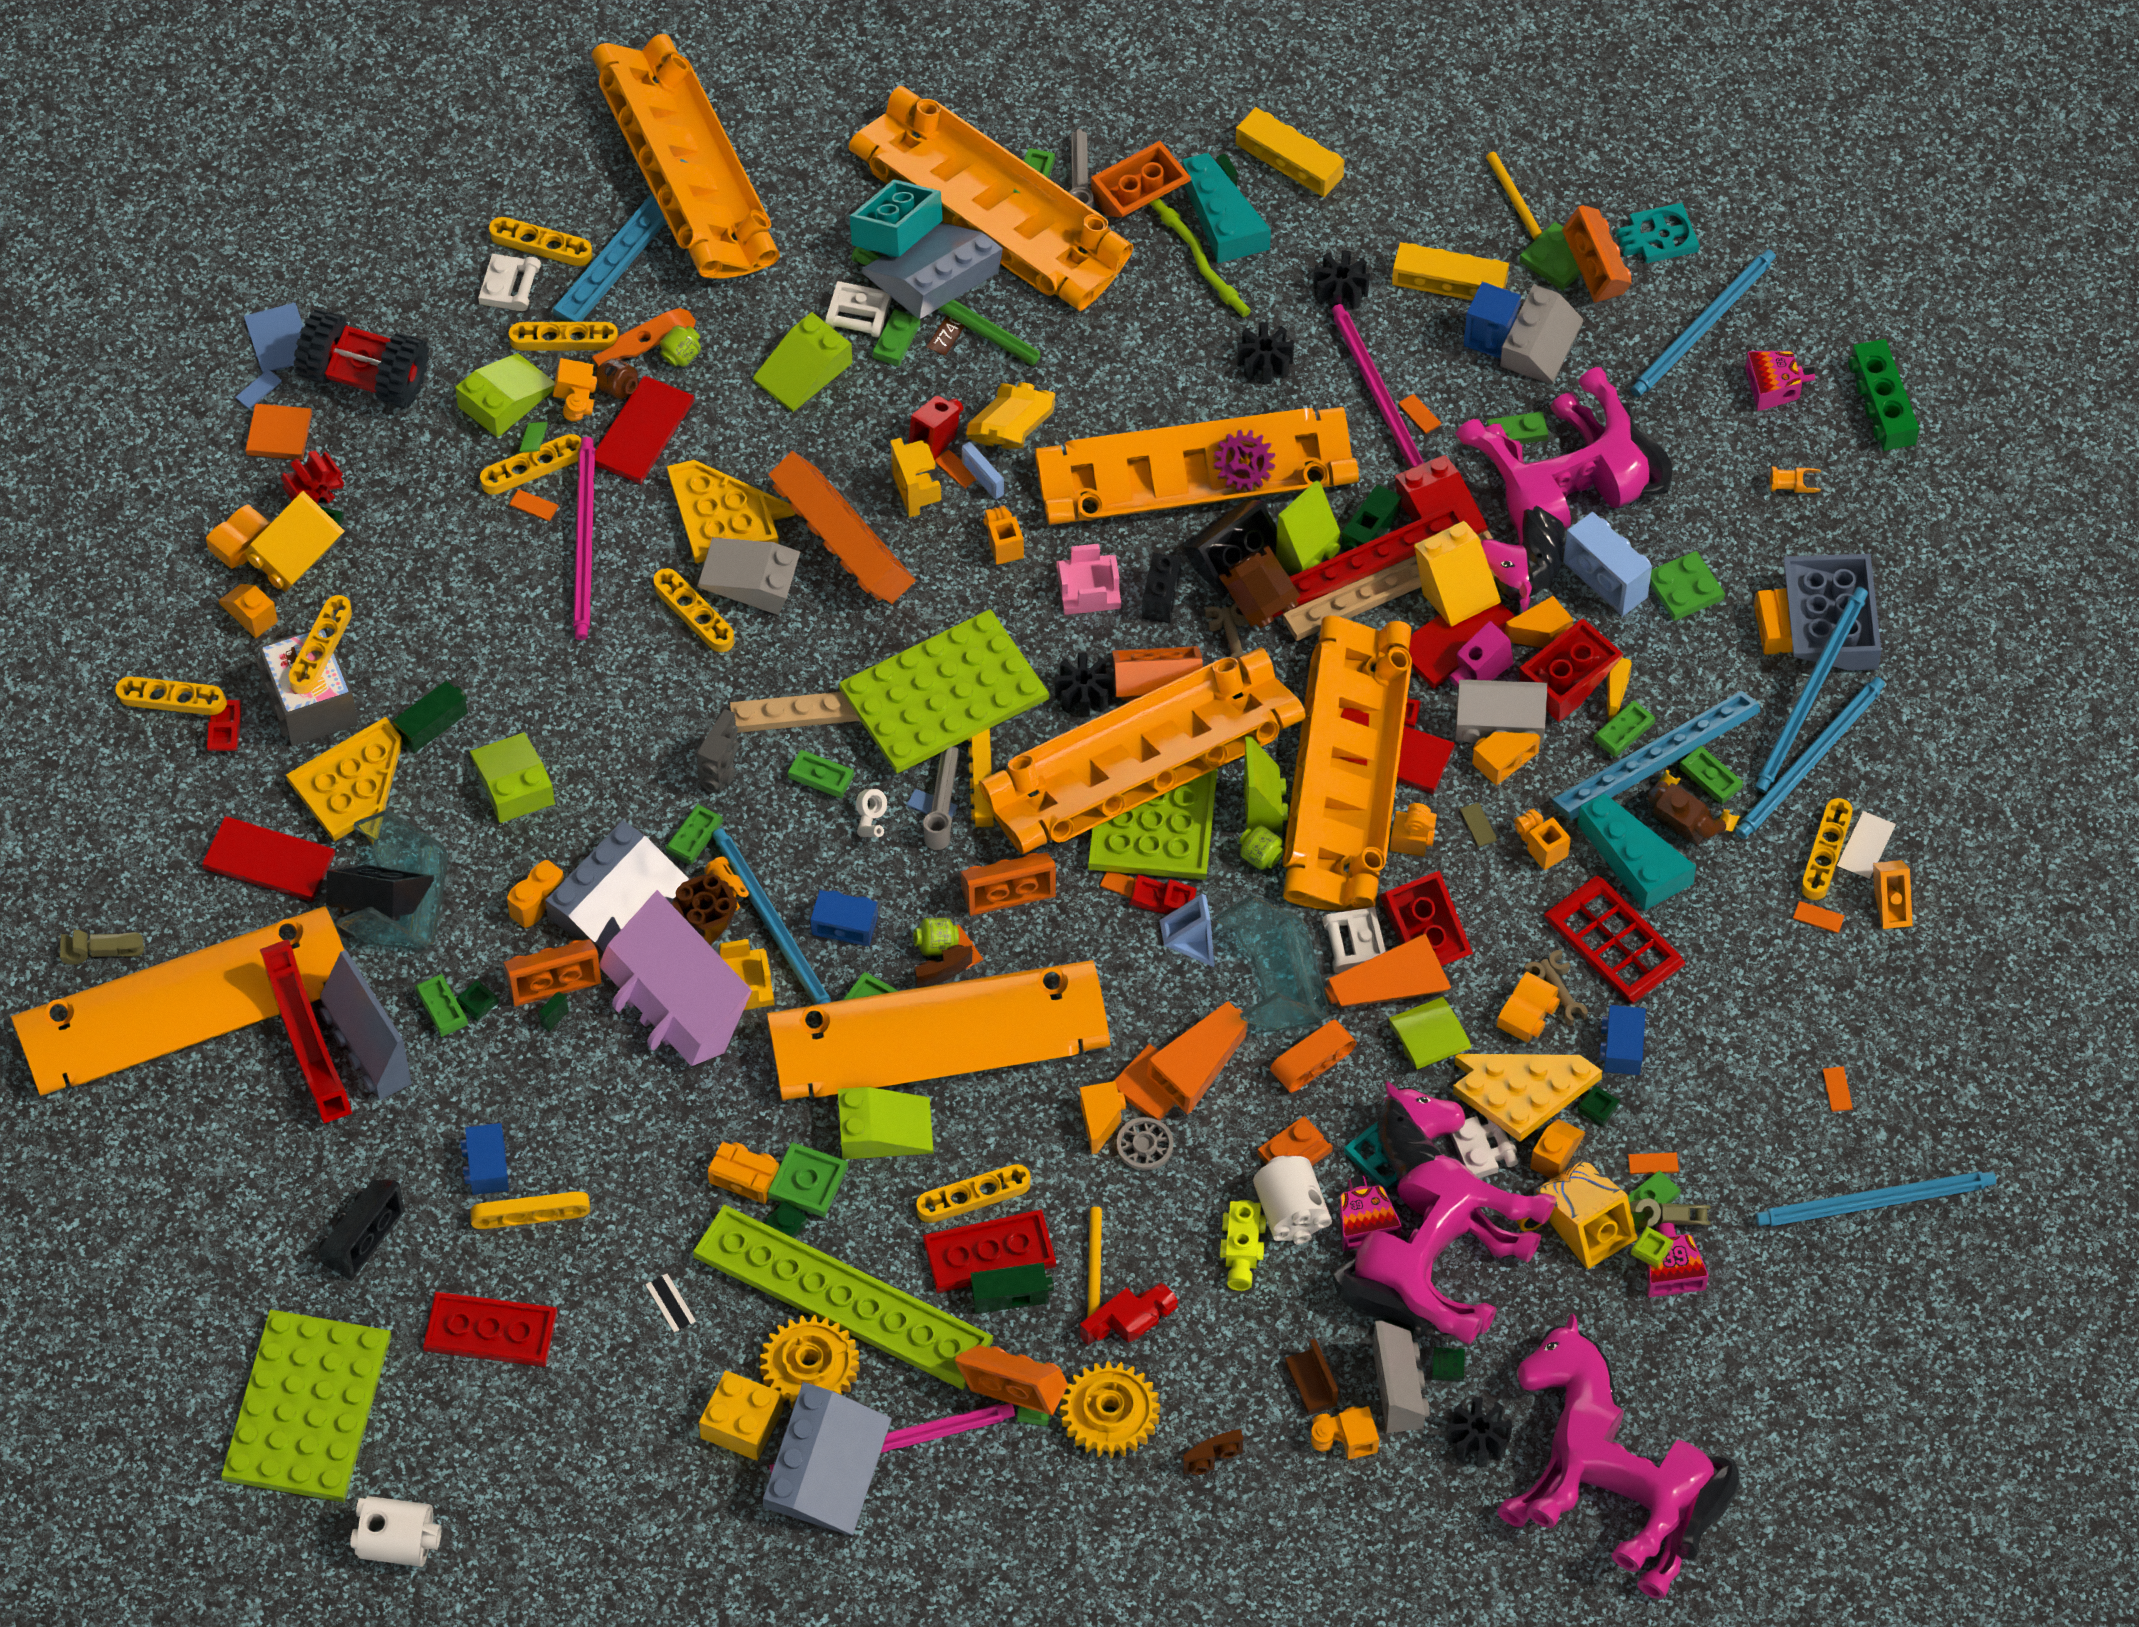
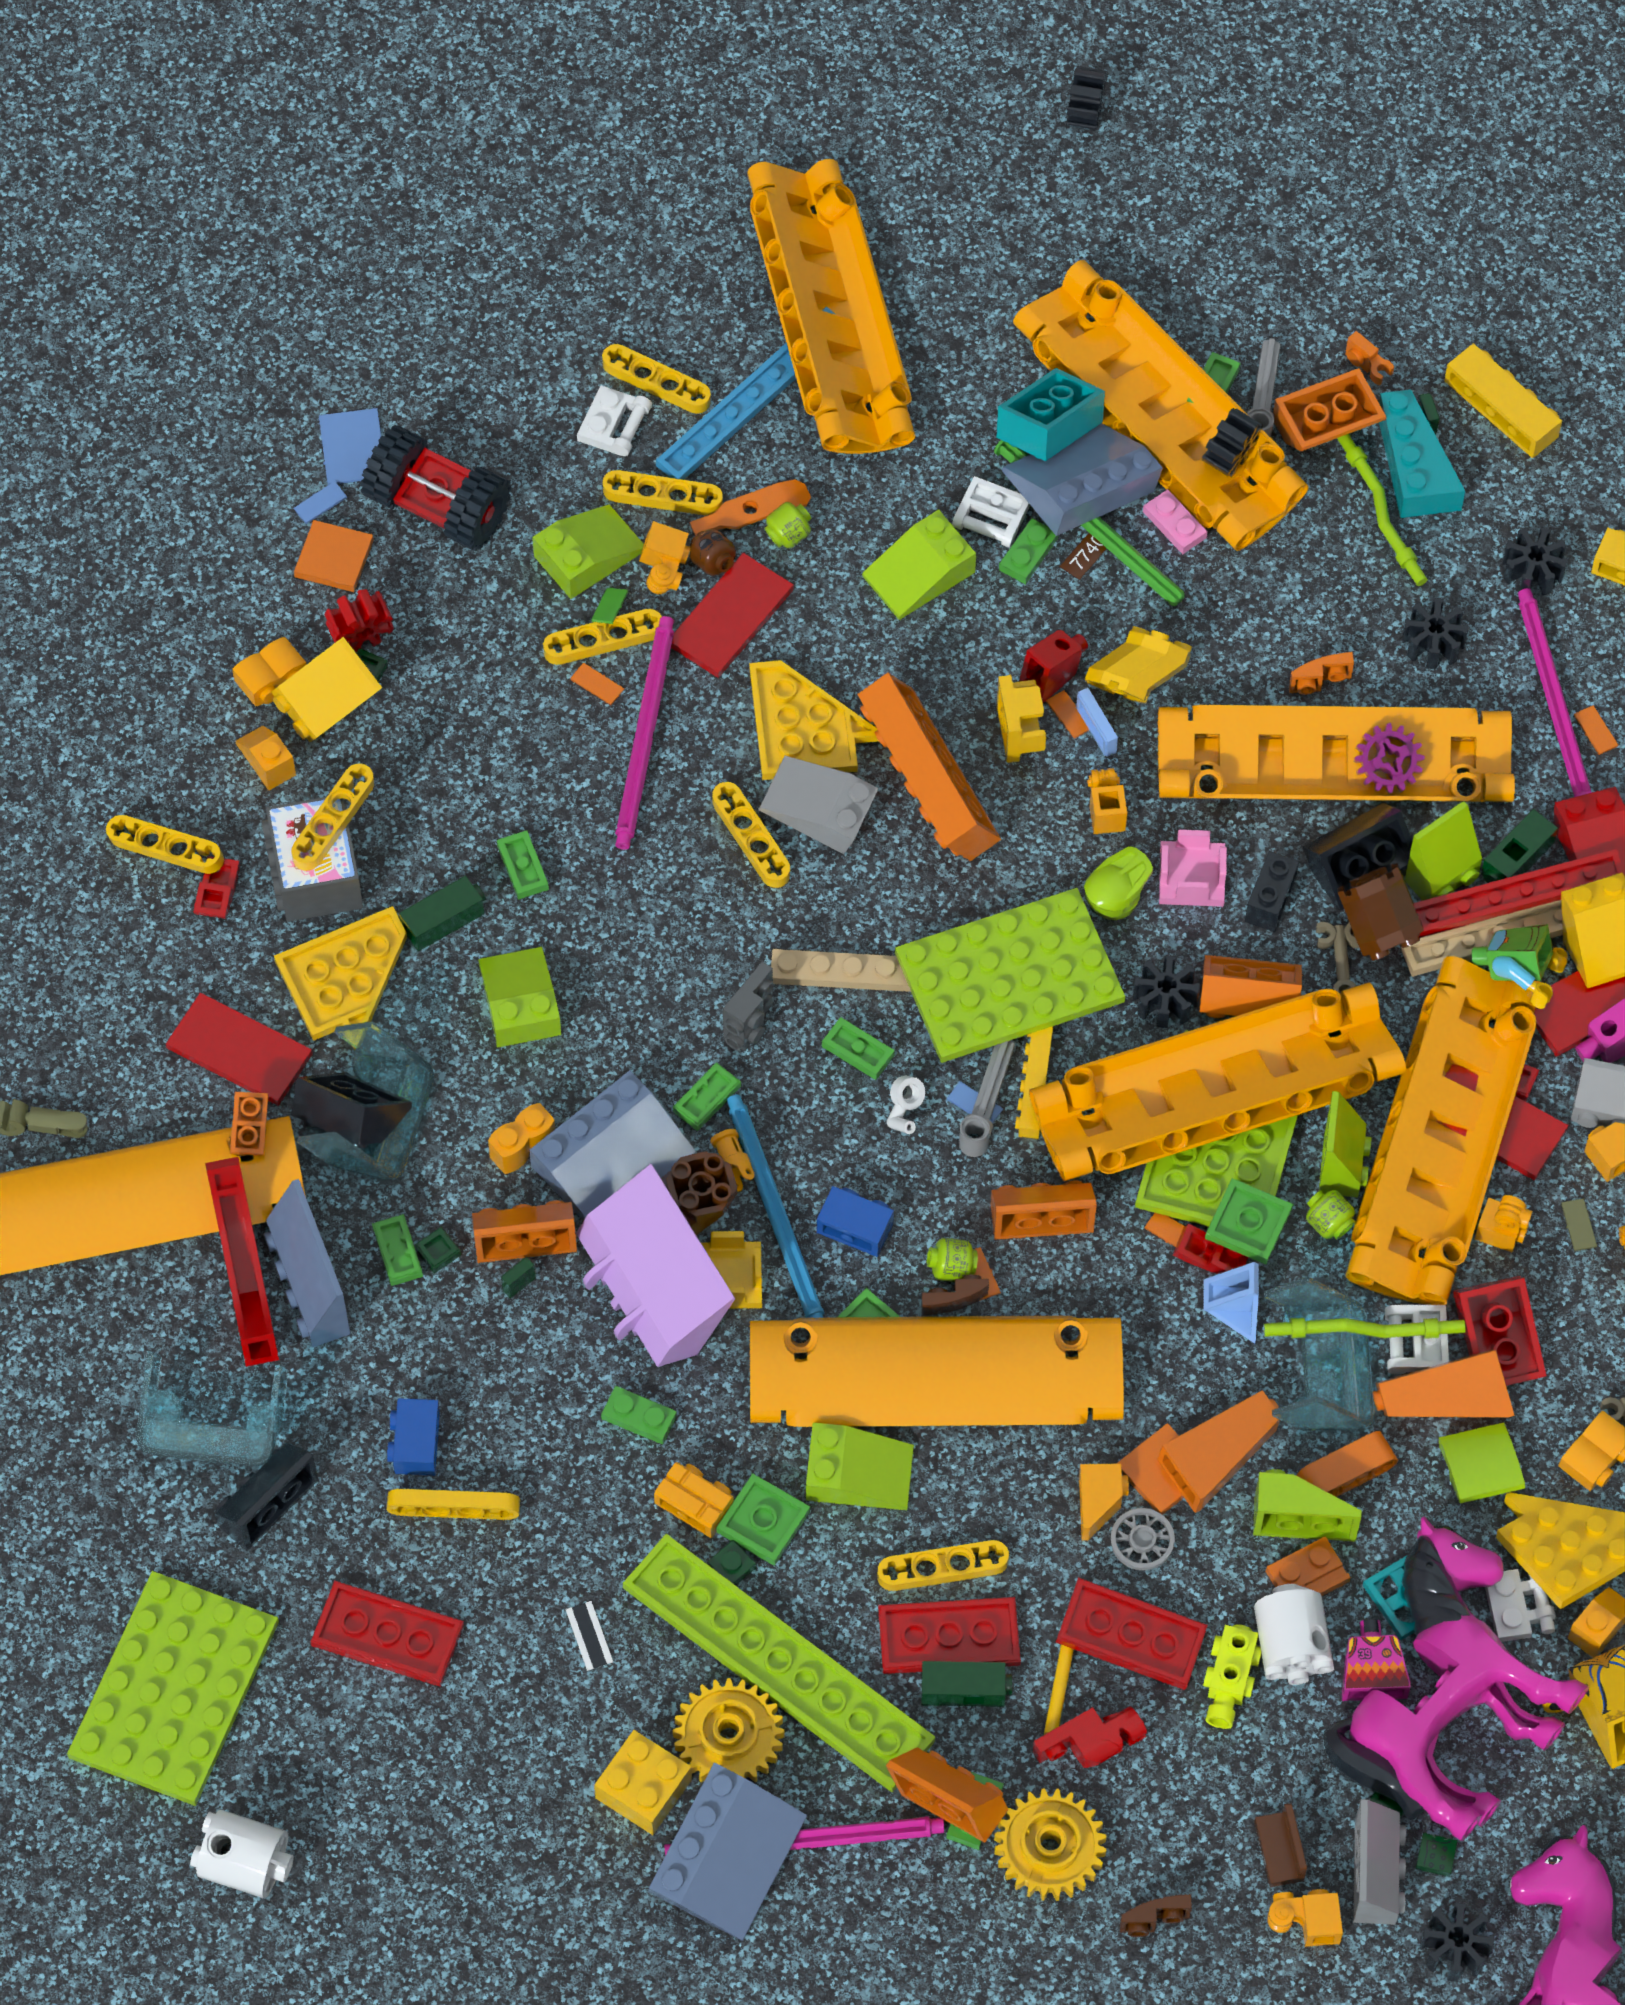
camera: 10 degrees right, 5 degrees up
(262, 1190) = (166, 1435): none -> clear light blue windscreen
(291, 914) = (249, 1123): none -> orange slope
(495, 665) = (522, 864): none -> bright green plate
(681, 1110) = (639, 1415): none -> bright green plate
(1021, 294) = (1175, 521): none -> bright pink plate
(1025, 601) = (1117, 883): none -> lime helmet
(1060, 217) = (1232, 442): none -> black gear
(1149, 1223) = (1131, 1633): none -> red tile
(1162, 130) = (1365, 355): none -> orange plate
(1162, 405) = (1310, 676): none -> orange slope
(1191, 862) = (1249, 1221): none -> bright green plate
(1280, 1094) = (1299, 1509): none -> lime slope
(1363, 927) = (1299, 1328): none -> lime bar
(1390, 606) = (1522, 957): none -> torso

